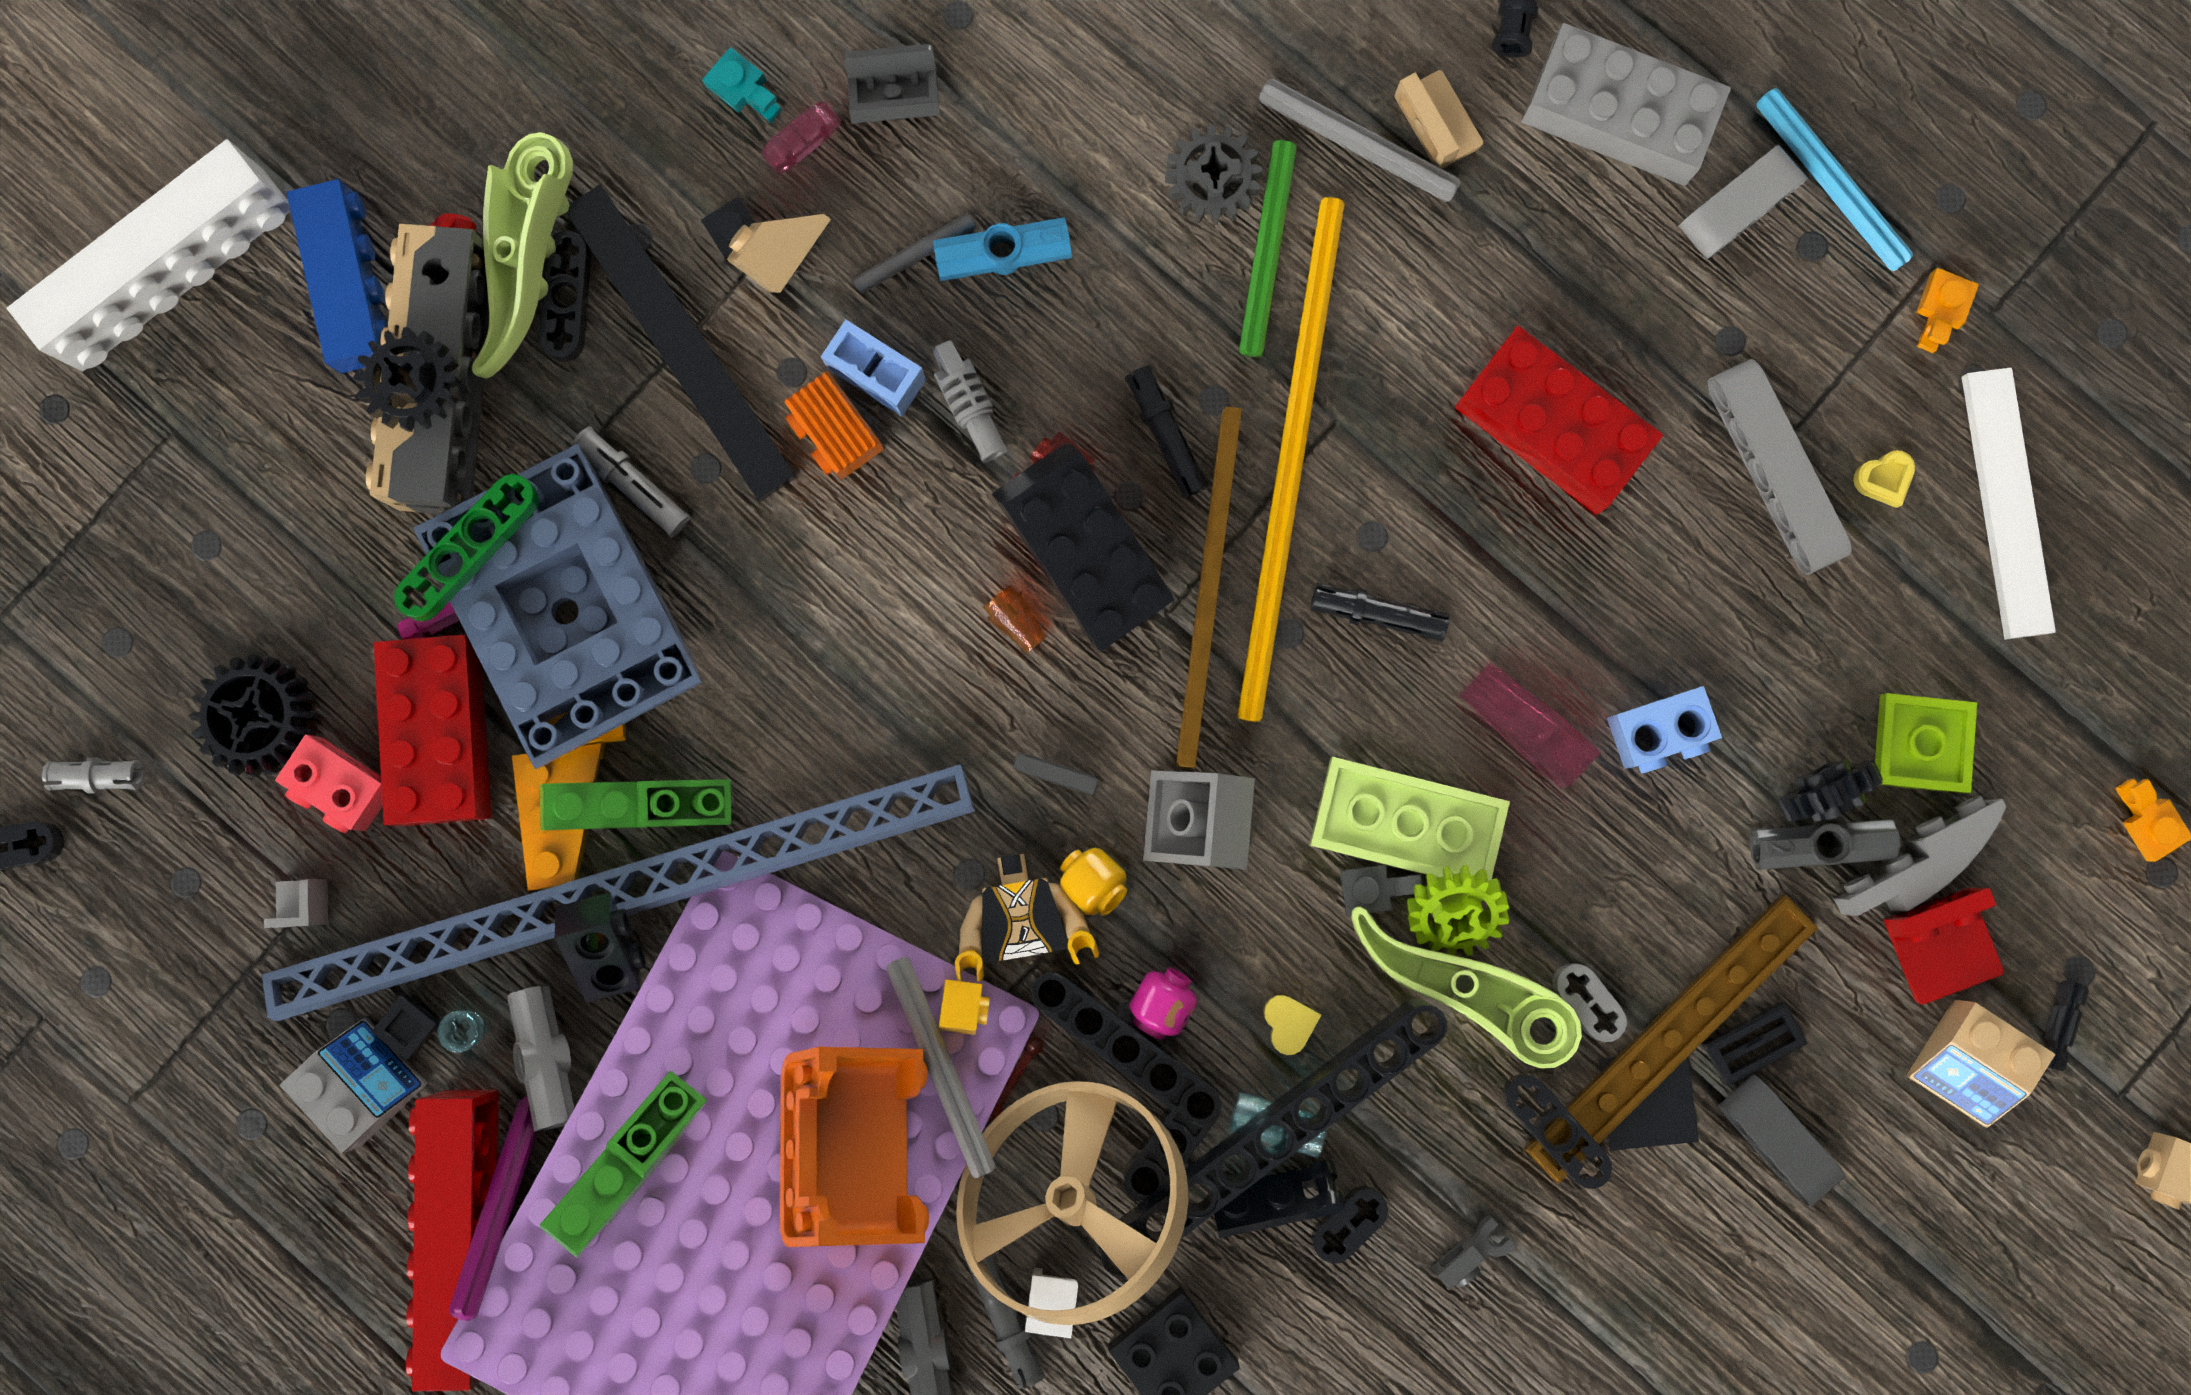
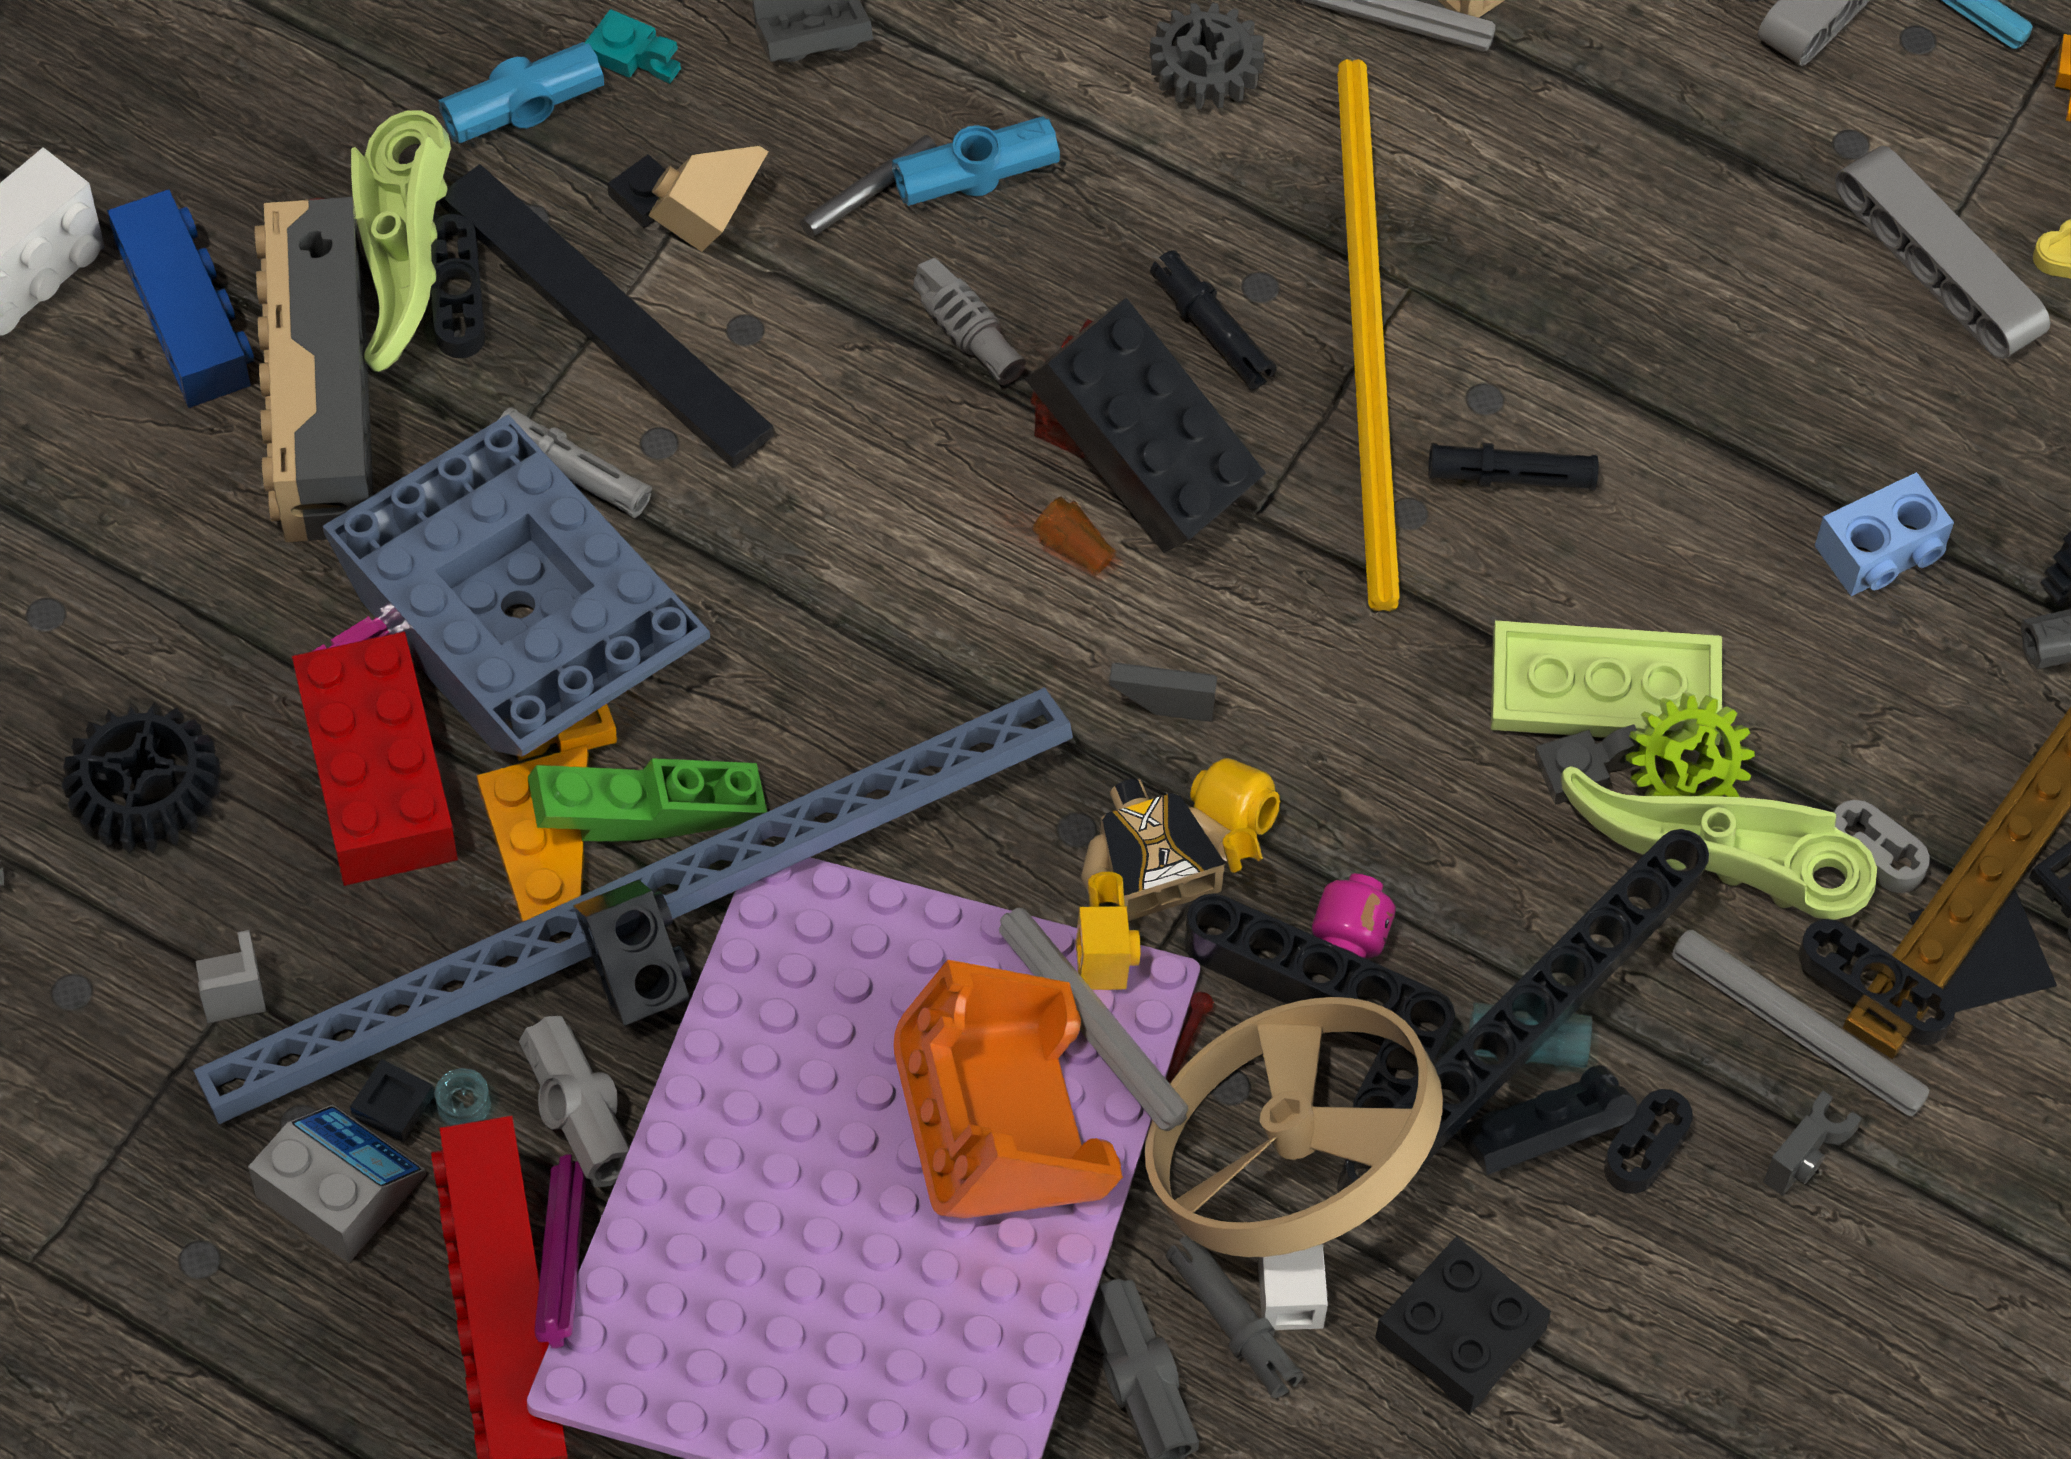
camera: 15 degrees left, 25 degrees down
(332, 783) = (257, 836): coral brick -> none
(422, 369) = (307, 345): black gear -> none
(460, 541) = (392, 520): green beam -> none
(624, 1164) = (726, 1152): bright green slope -> none
(643, 119) = (521, 92): none -> dark azure piece
(801, 137) = (712, 84): clear pink beam -> none
(833, 425) = (810, 367): orange brick -> none
(873, 368) = (849, 294): light blue brick -> none
(1199, 819) = (1349, 713): light grey slope -> none
(1208, 588) = (1302, 474): pearl gold tile -> none
(1267, 248) = (1287, 124): bright green axle -> none
(1290, 1023) = (1515, 926): light yellow tile -> none
(1491, 1146) = (1800, 1022): none -> light grey axle
(1530, 726) = (1728, 558): clear pink slope -> none
(1558, 421) = (1671, 239): red brick -> none

